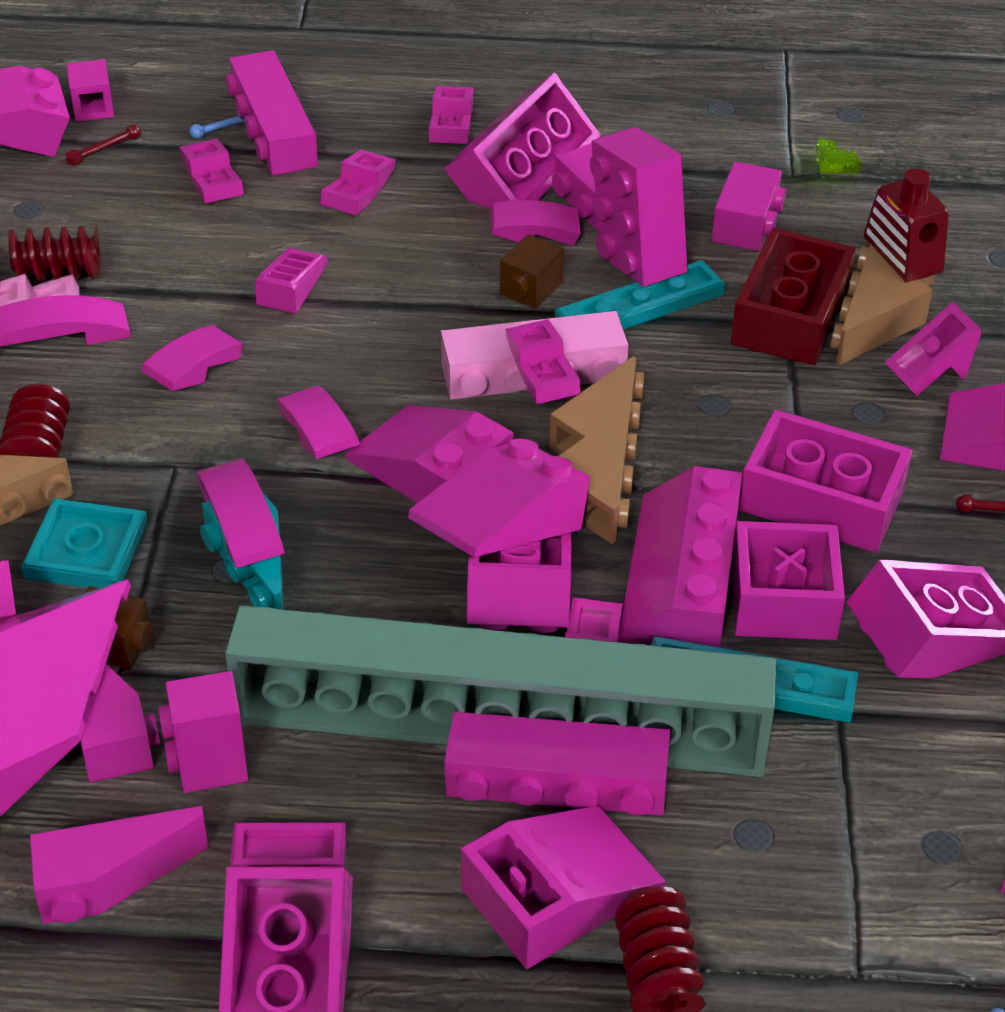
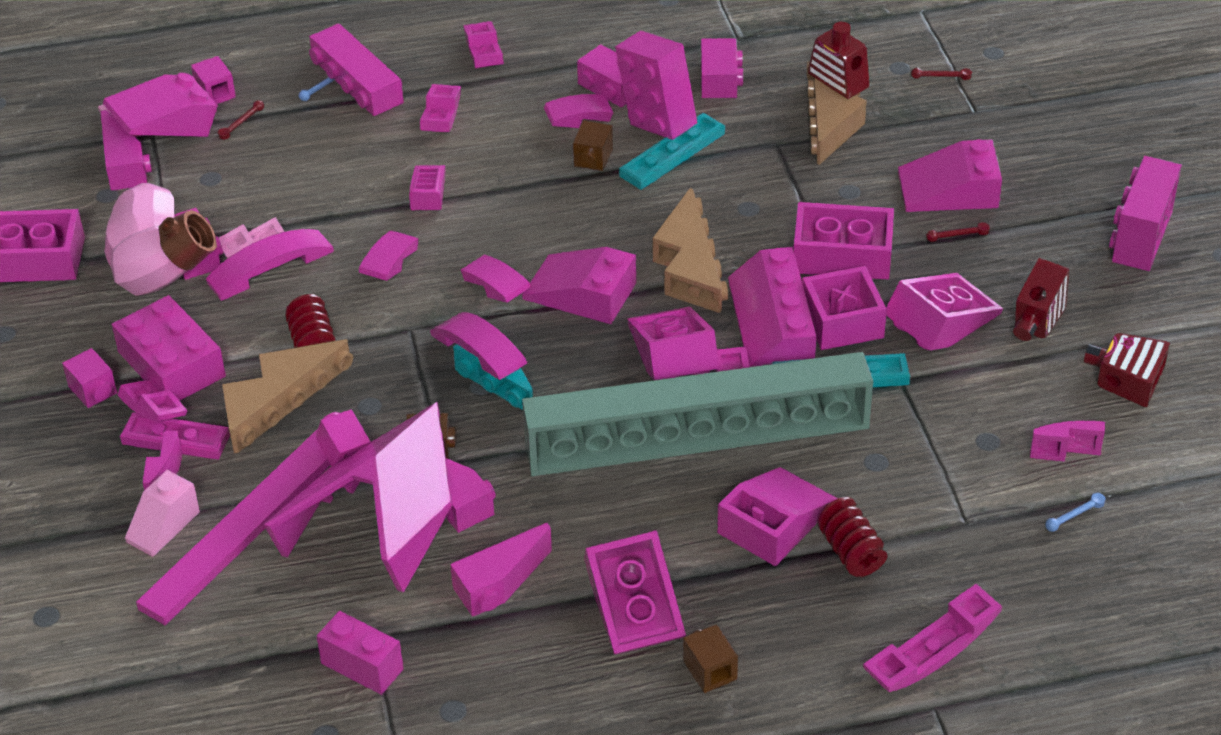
camera: 15 degrees left, 0 degrees up
(55, 254) = (256, 205): dark red piece -> none
(84, 544) = (380, 391): teal tile -> none
(206, 731) = (528, 480): dark pink brick -> none
(211, 170) = (330, 123): dark pink slope -> none
(289, 844) = (599, 533): dark pink tile -> none
(481, 362) = (619, 202): bright pink brick -> none
(506, 500) = (650, 298): dark pink slope -> none
(519, 147) = (547, 57): dark pink slope -> none
(542, 361) = (632, 204): dark pink slope -> none
(557, 763) = (747, 448): dark pink brick -> none
(792, 296) = (776, 124): dark red brick -> none
(836, 160) = (763, 22): clear neon green tile -> none
(941, 344) = (884, 136): dark pink slope -> none

